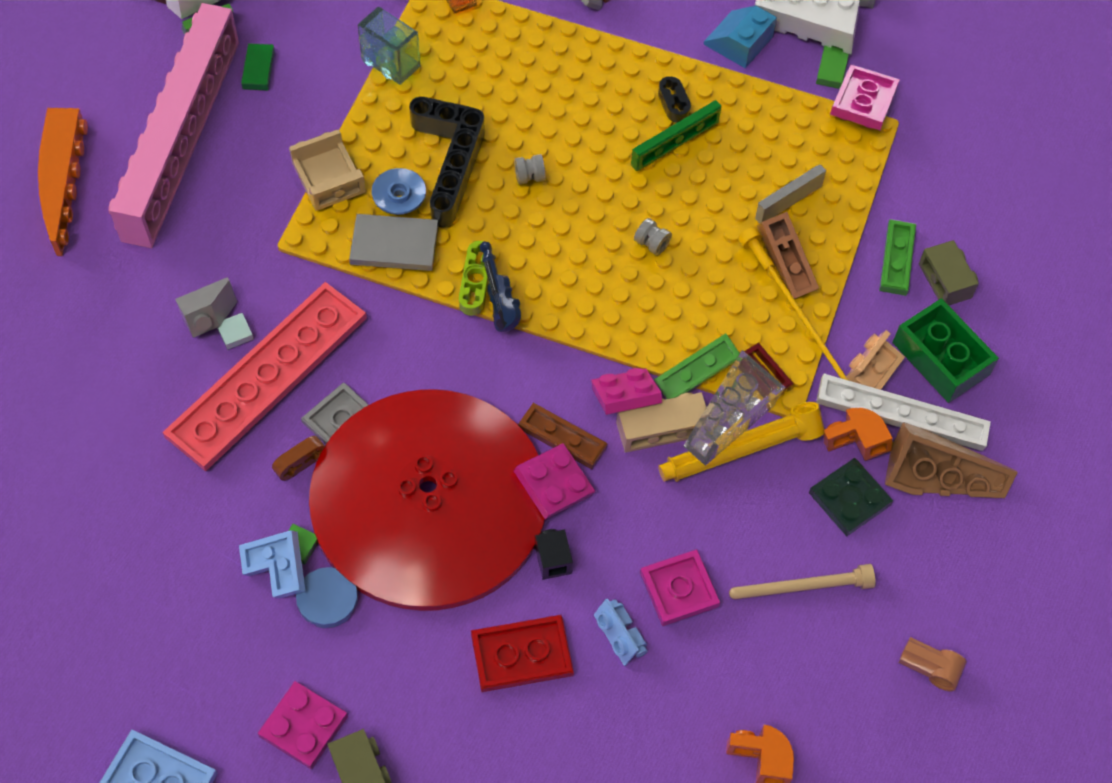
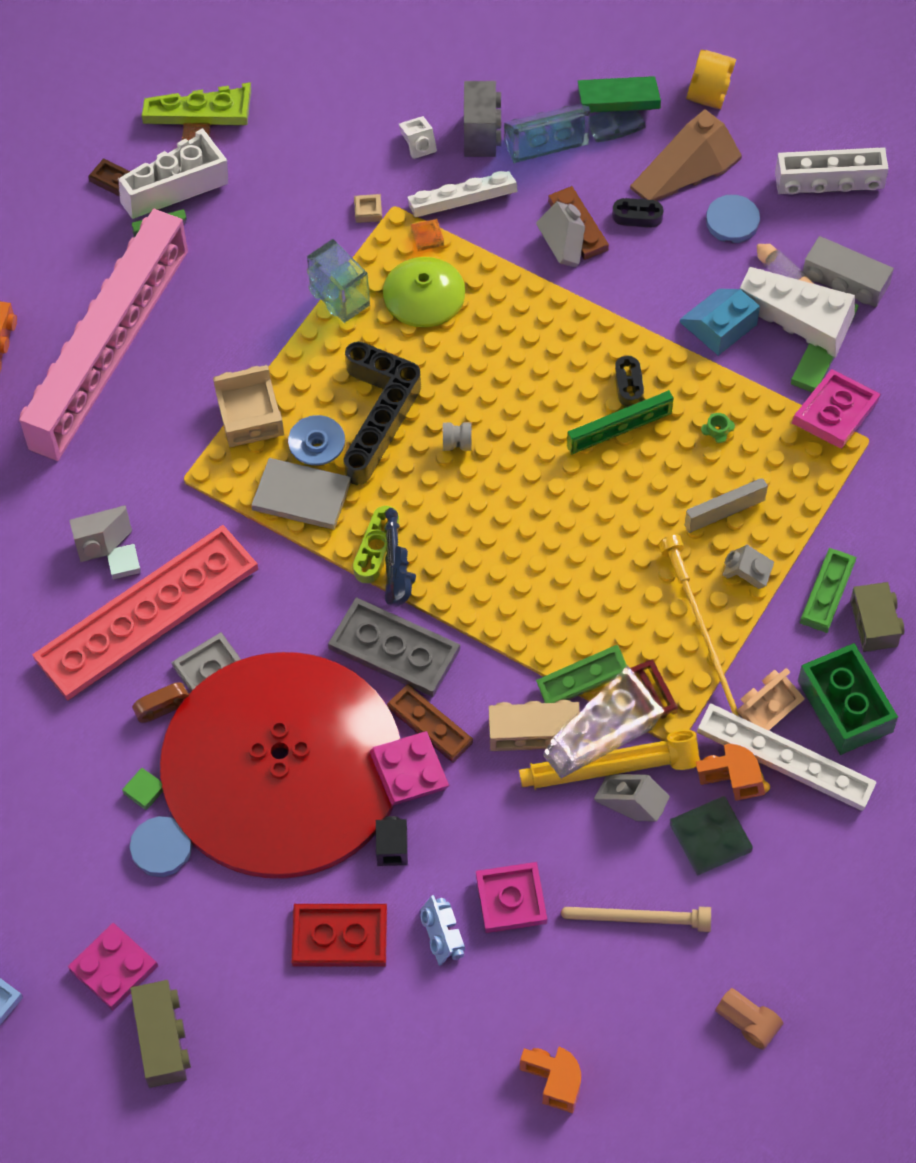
camera: 15 degrees right, 0 degrees up
(258, 67) = (201, 281): green tile -> none
(280, 557) = (122, 798): light blue plate -> none
(468, 48) = (424, 302): none -> lime dish
(513, 369) = (394, 646): none -> flat silver plate
(626, 391) = (503, 687): dark pink plate -> none
(652, 236) = (567, 527): light grey wheel -> none
(768, 123) = (718, 420): none -> bright green plate
(771, 472) = (633, 796): none -> light grey slope
(787, 254) = (706, 572): nougat slope -> none
(824, 244) = (749, 565): none -> light grey bracket
(934, 464) = (809, 818): medium nougat wedge -> none

